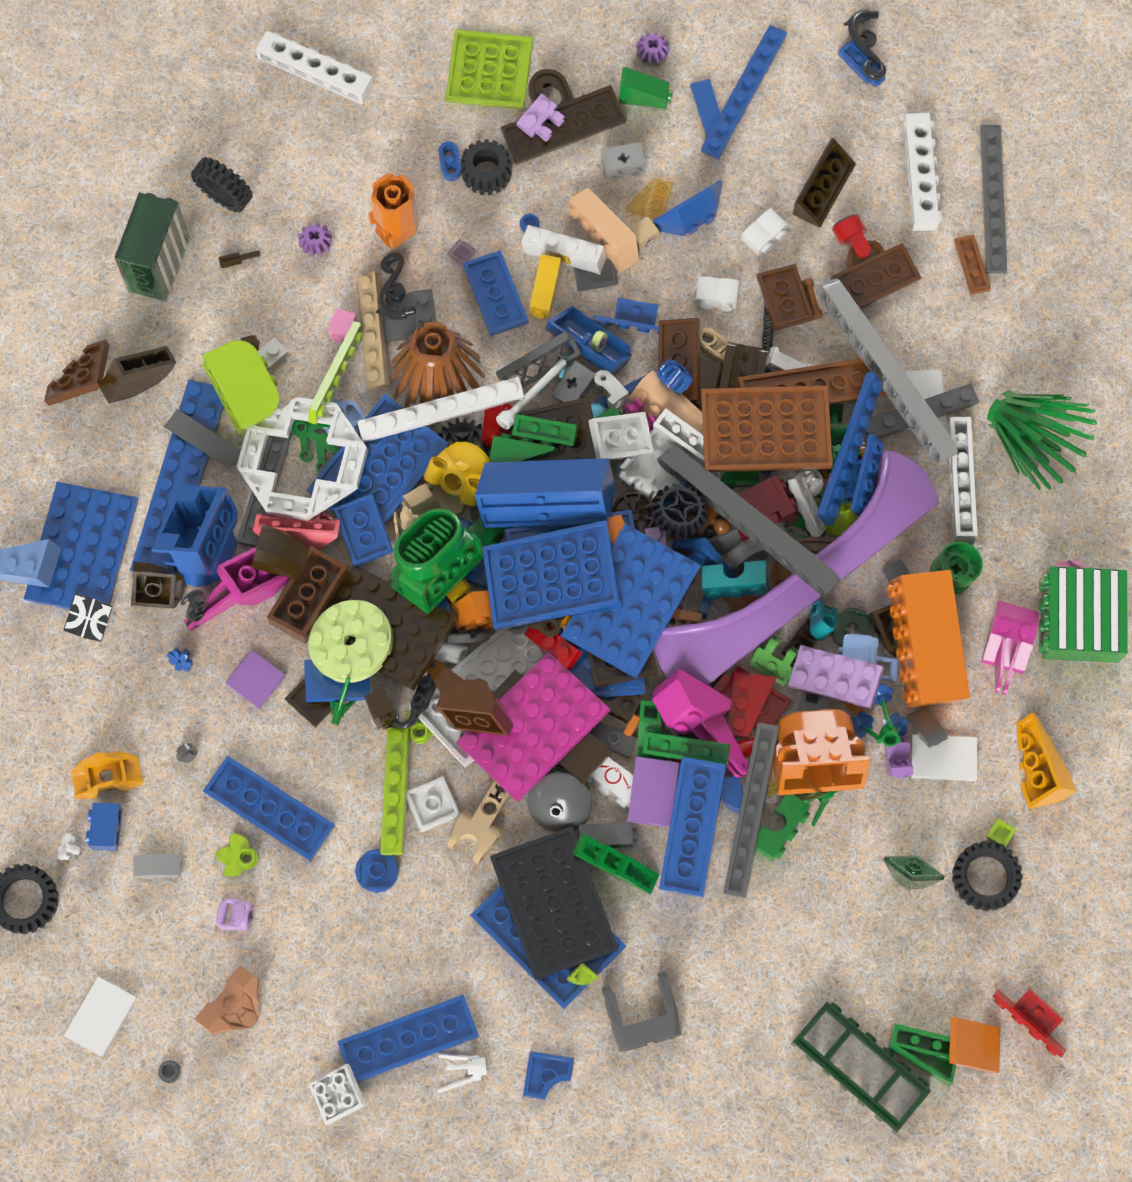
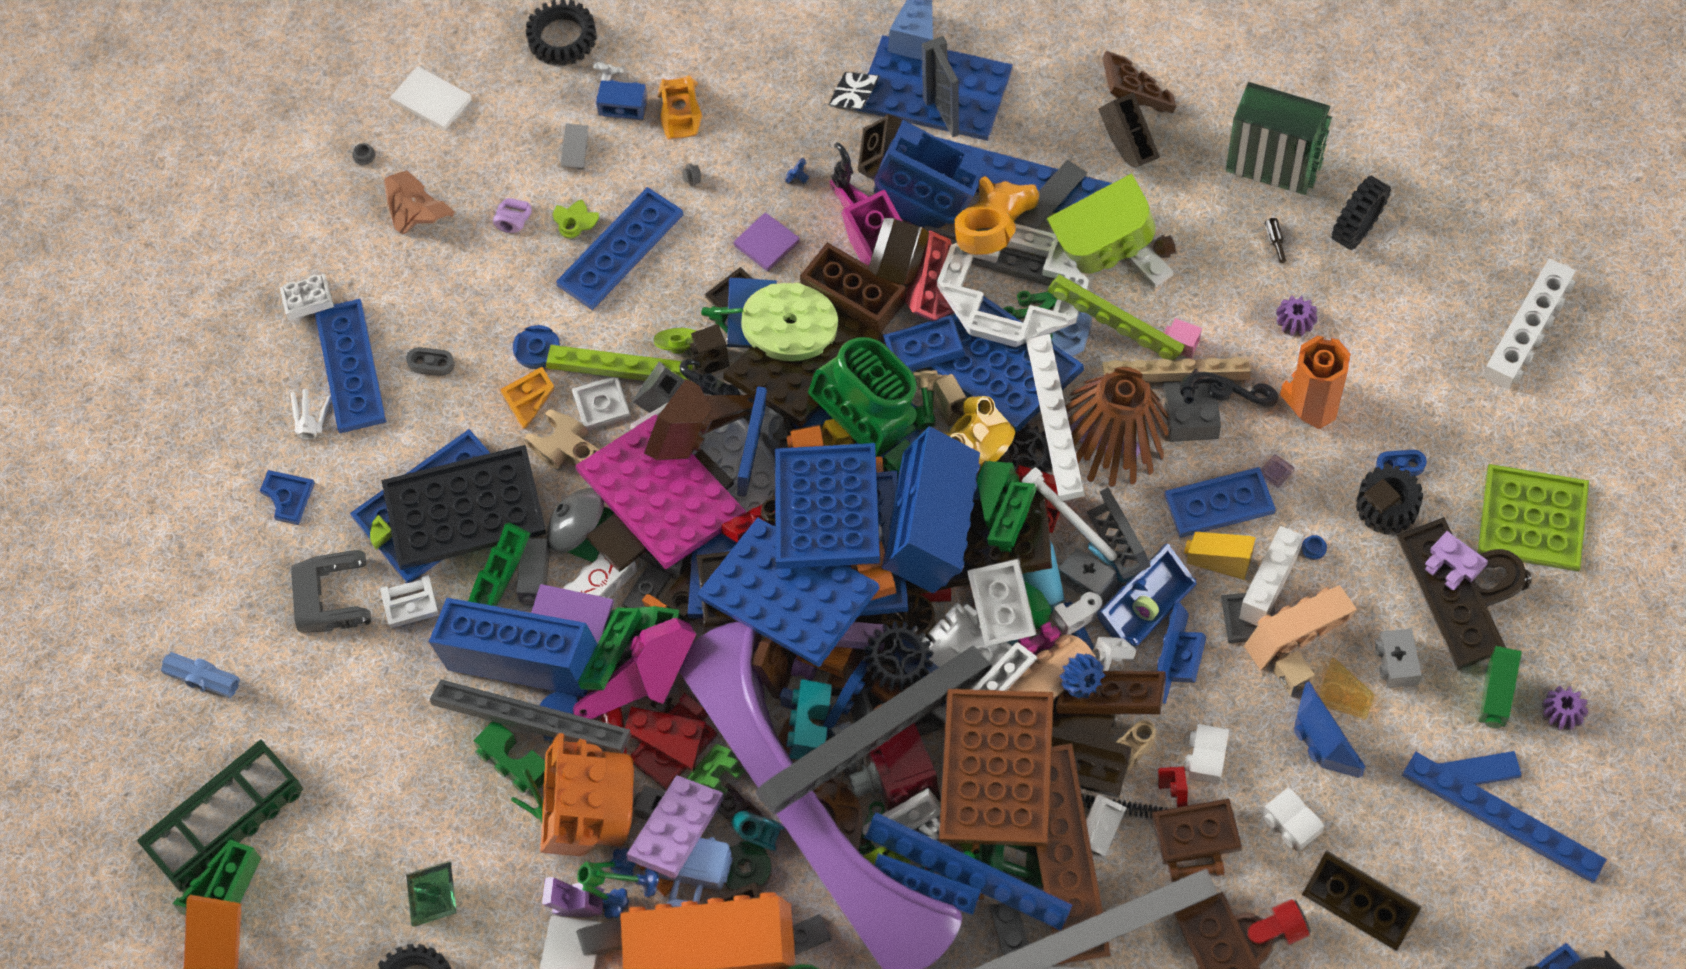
camera: 100 degrees right, 10 degrees down
(100, 522) = (940, 83): none -> dark grey fence
(221, 471) = (996, 209): none -> light orange animal
(366, 742) = (674, 339): none -> lime dish
(398, 964) = (431, 362): none -> dark grey plate
(422, 747) = (658, 388): none -> dark grey slope
(430, 869) = (528, 395): none -> light orange wing
(482, 653) = (751, 441): none -> blue tile
(493, 166) = (1381, 496): none -> dark brown tile
(642, 362) = (1112, 648): none -> white bracket
(649, 937) = (412, 607): none -> white plate
(732, 1114) = (200, 674): none -> medium blue piece
(747, 311) = (1175, 780): none -> red bracket

